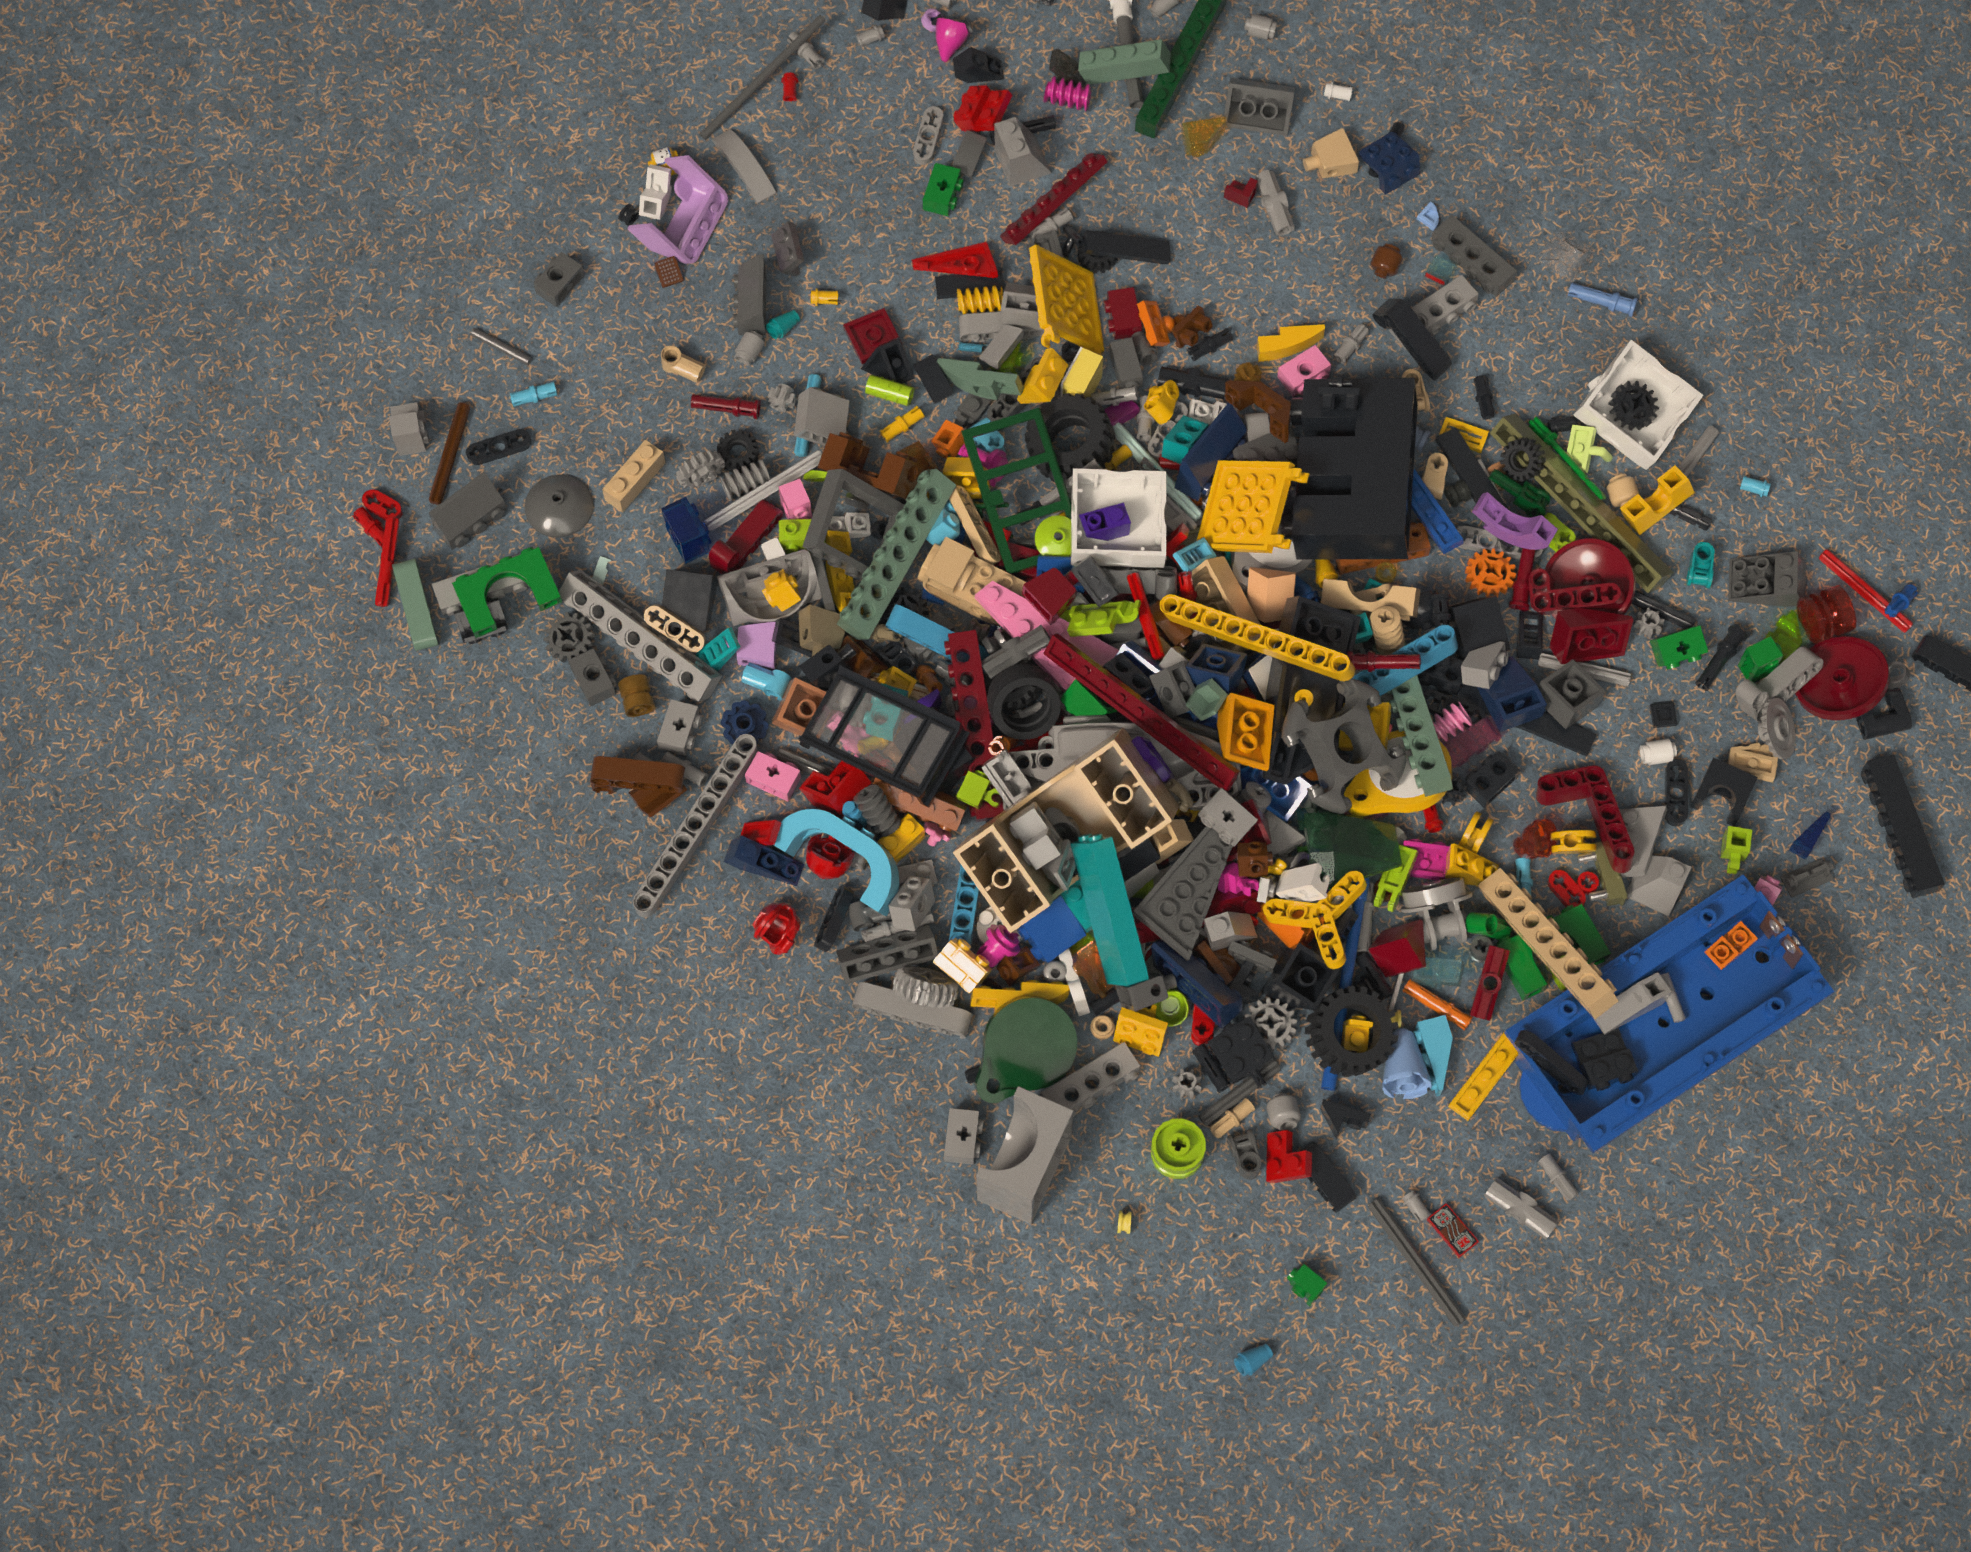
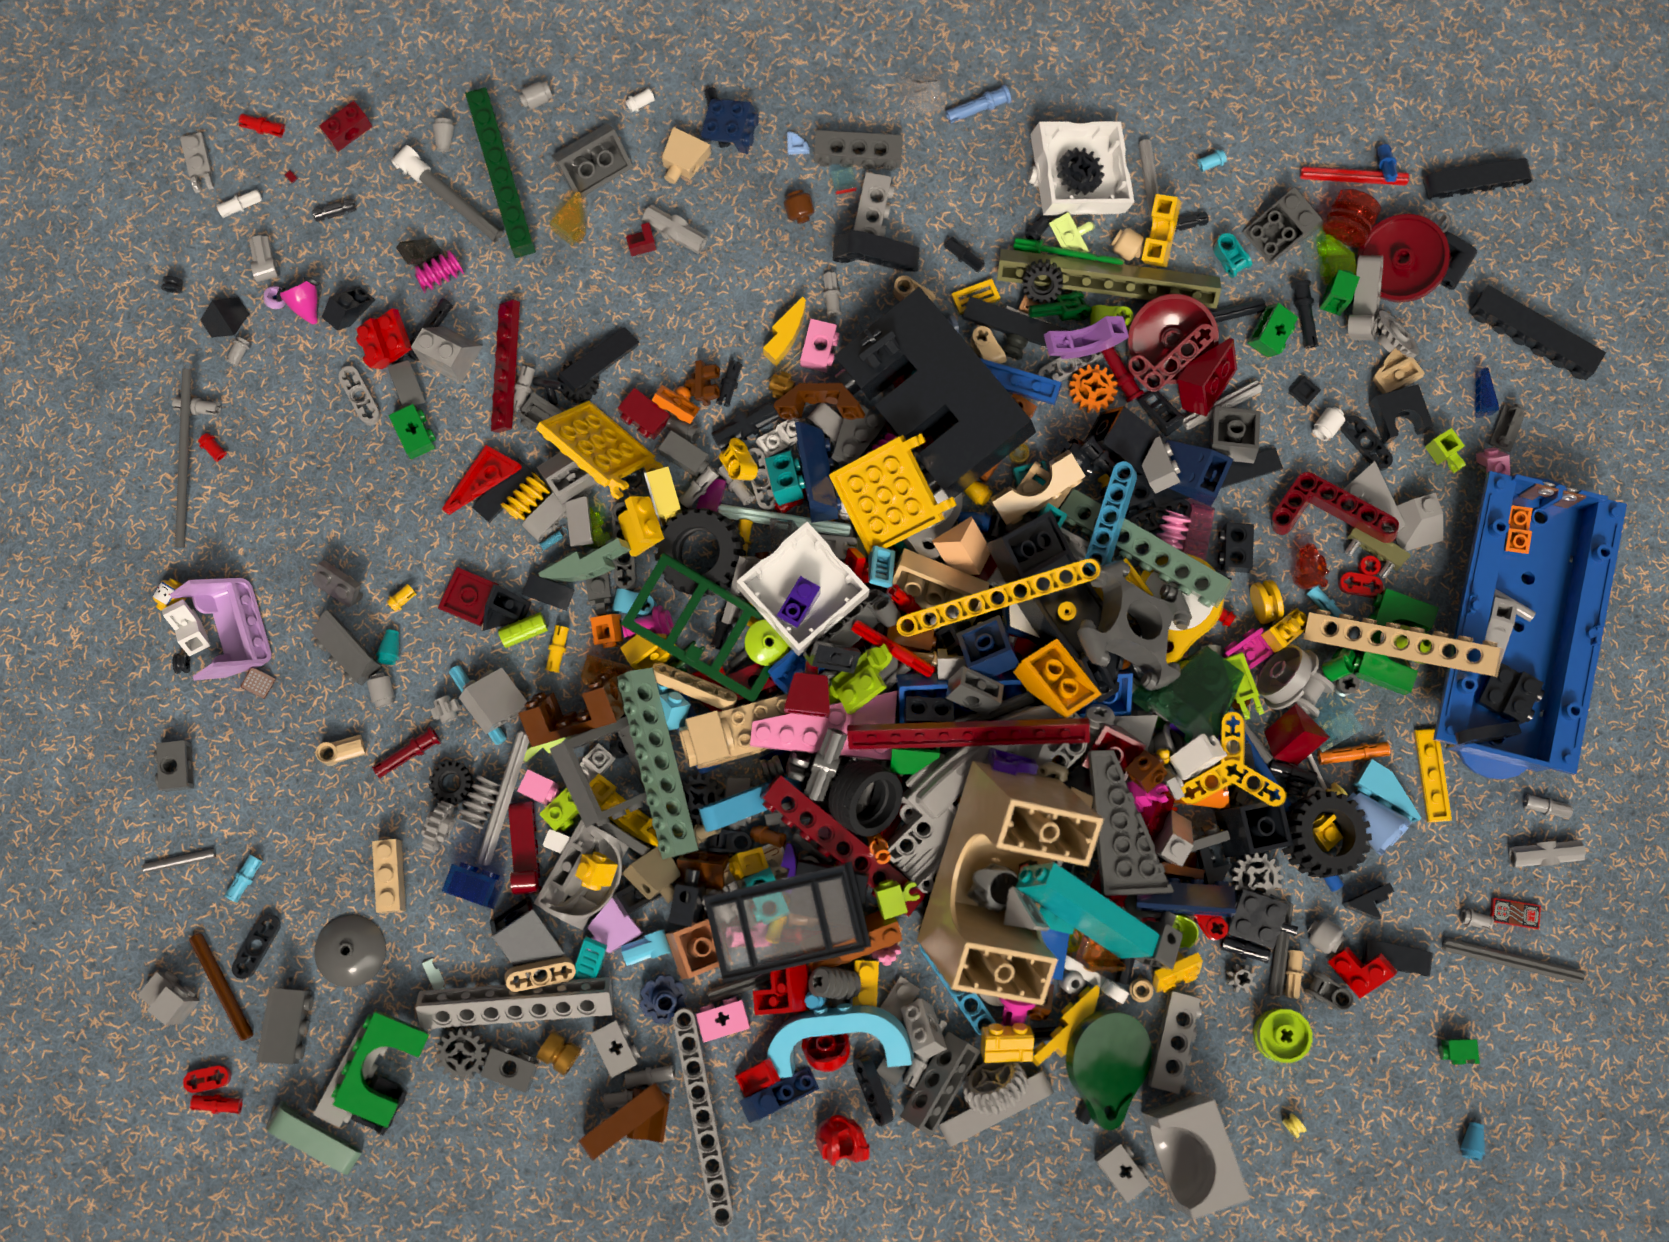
camera: 45 degrees left, 10 degrees up
(387, 559) = (256, 1123): red axle -> none
(745, 165) = (236, 542): light grey slope -> none
(1007, 777) = (911, 872): light grey hinge -> none
(1038, 835) = (995, 909): light grey brick -> none
(1124, 62) = (461, 210): sand green brick -> none
(1206, 699) = (1007, 680): sand green panel -> none
(1239, 820) = (1117, 753): light grey brick -> none
(1387, 630) = (1075, 502): tan piece -> none
(1391, 661) = (1091, 539): dark red pin -> none
(1485, 998) = (1383, 717): dark red piece -> none
(1573, 842) = (1339, 546): yellow head -> none
(1649, 629) = (1239, 325): light grey gear -> none

